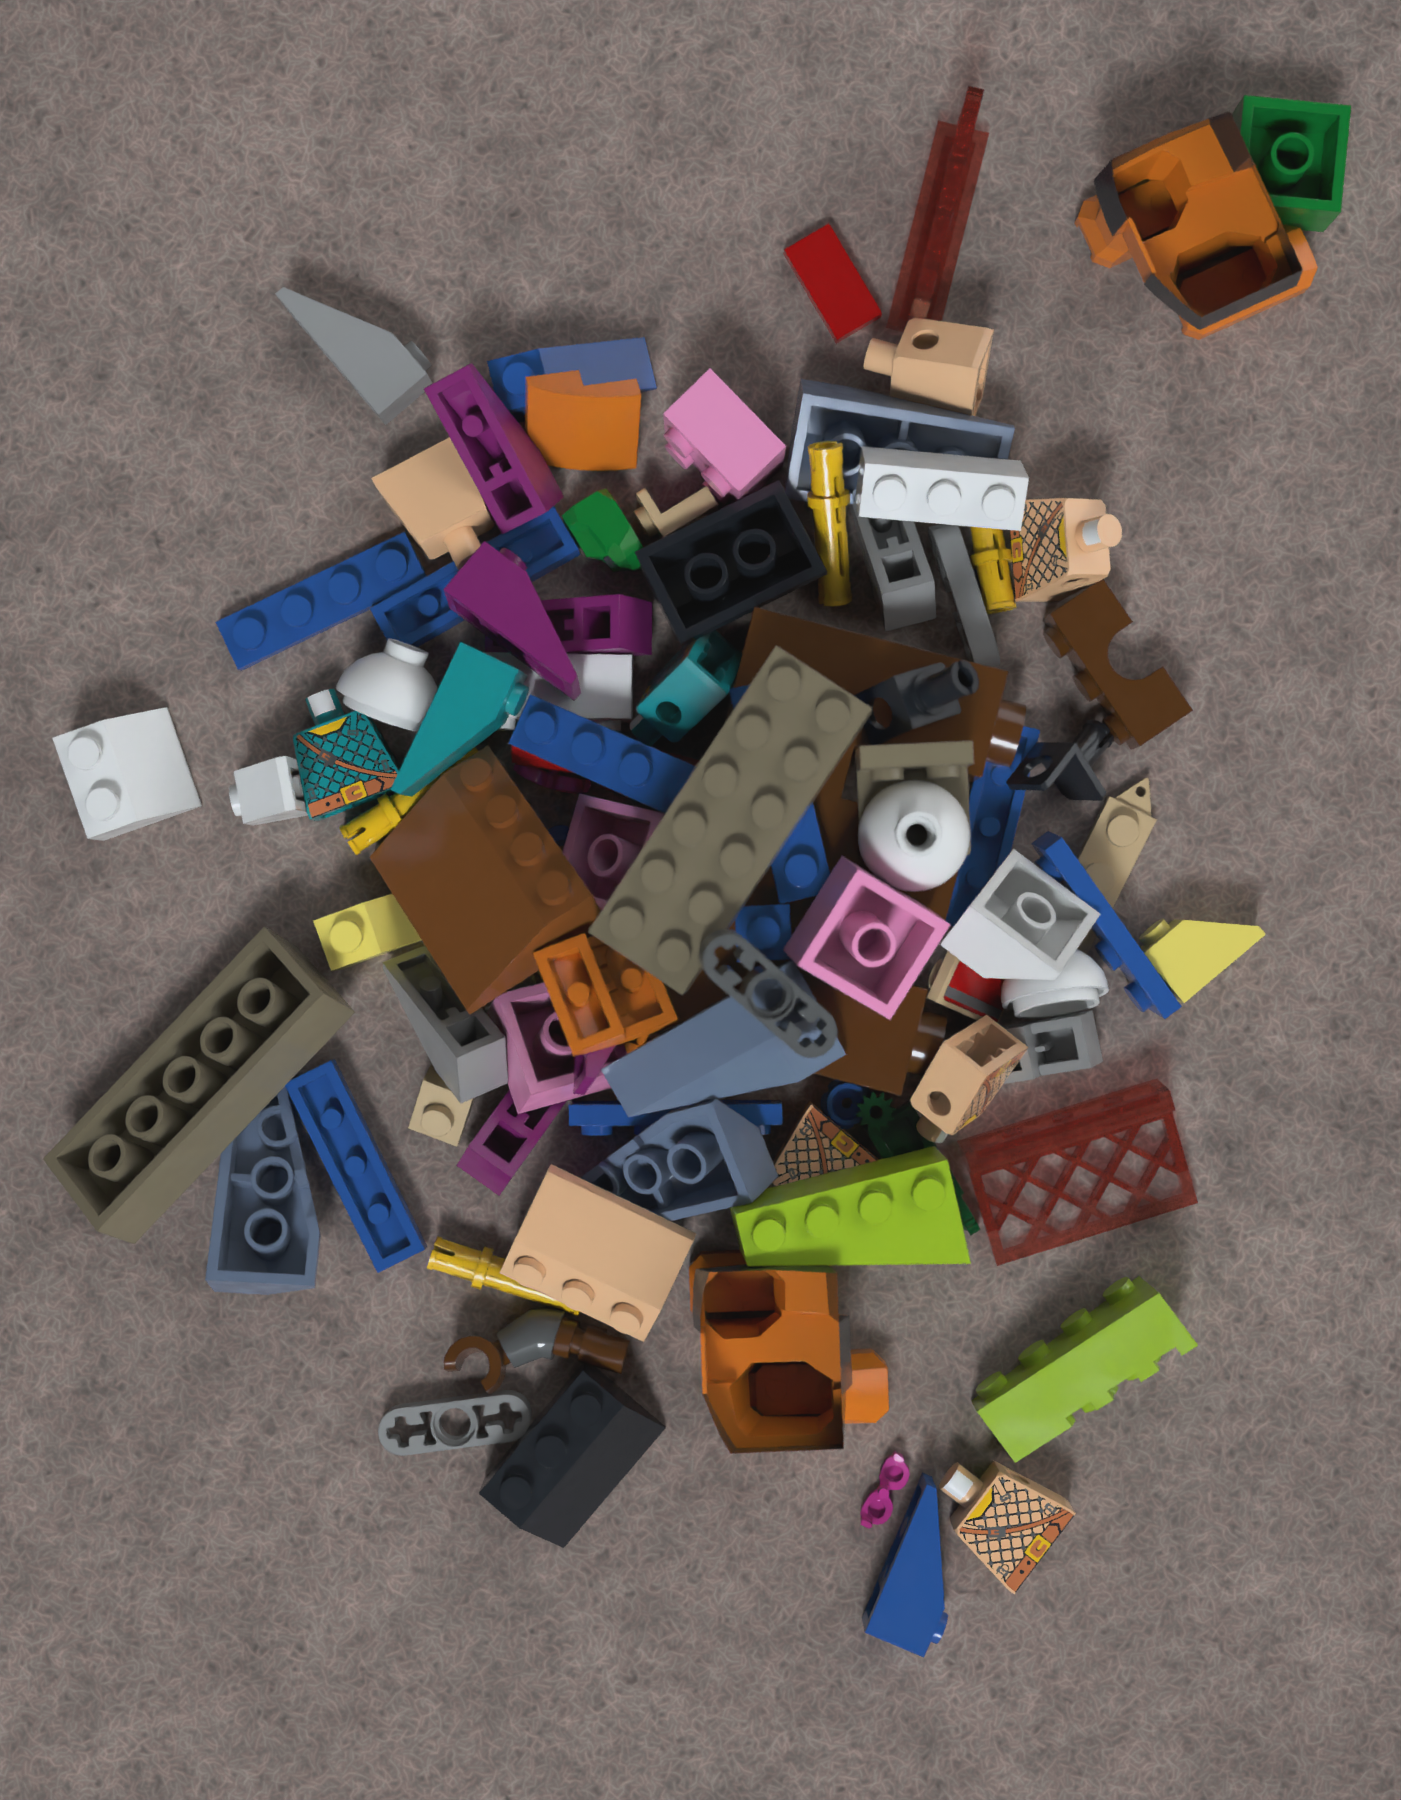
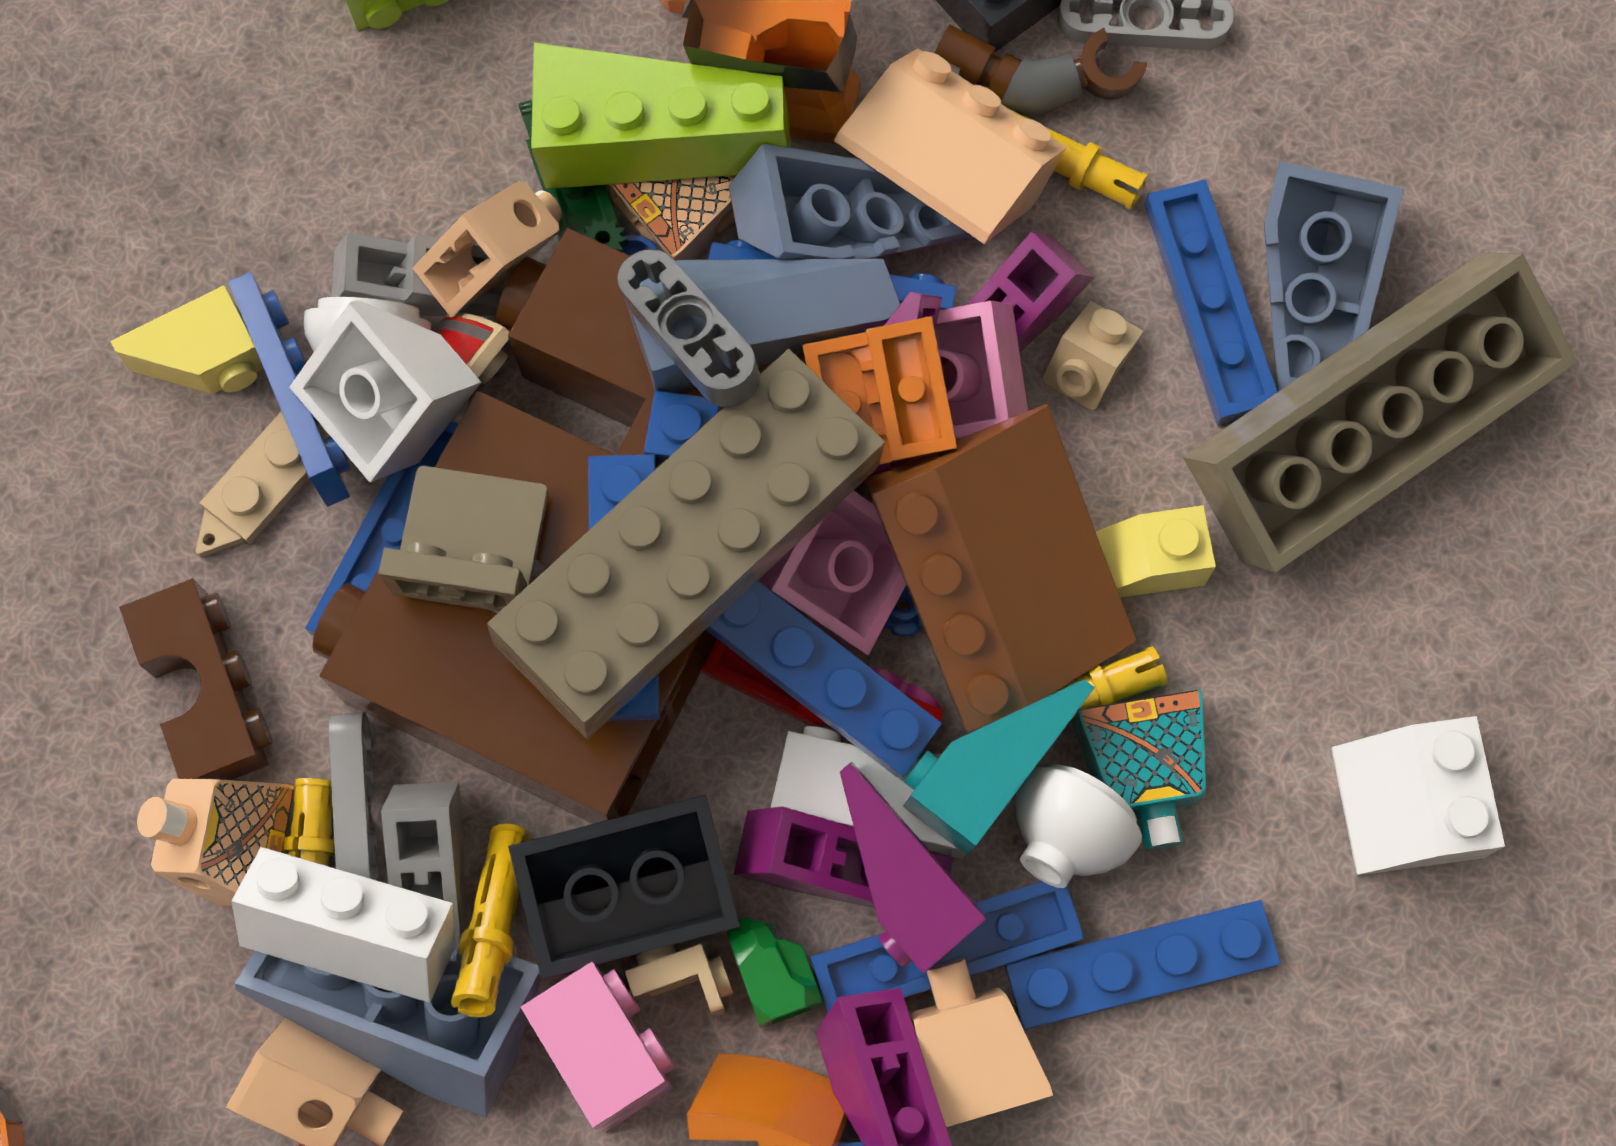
camera: 170 degrees left, 15 degrees down
(268, 792) = (1245, 733): white slope -> none
(462, 1047) = (1061, 373): light grey slope -> none
(686, 689) = (711, 749): teal torso -> none
(866, 938) = (562, 386): bright pink brick -> none
(885, 843) = (484, 519): white piece -> none
(919, 698) = (430, 654): black bracket -> none
(1066, 764) = (283, 576): black bracket -> none
(1077, 1127) = (394, 183): clear red fence -> none

